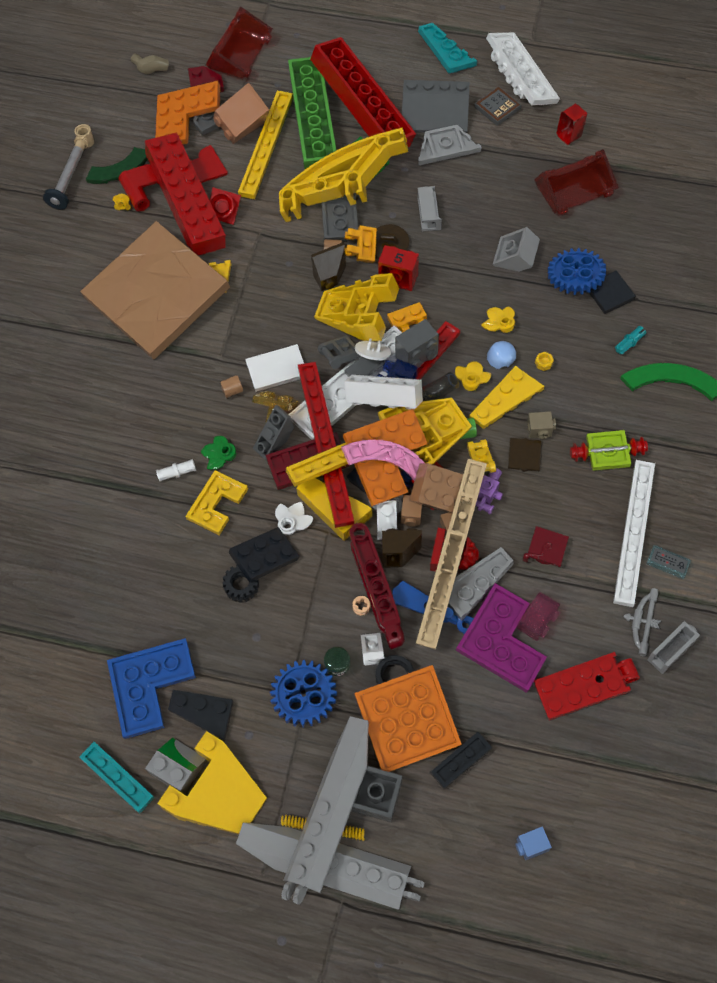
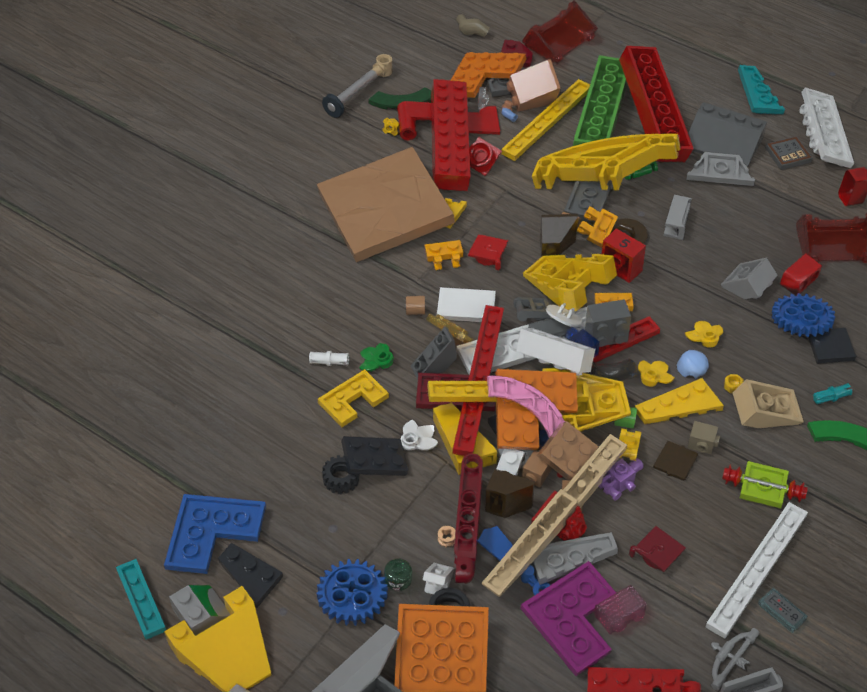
camera: 20 degrees right, 15 degrees down
(196, 141) = (483, 98): none -> clear plate
(224, 147) = (507, 111): none -> medium blue arm
(232, 318) = (442, 251): none -> light orange plate
(272, 304) = (488, 250): none -> red hat
(559, 230) = (801, 274): none -> red piece
(580, 373) = (766, 405): none -> tan slope

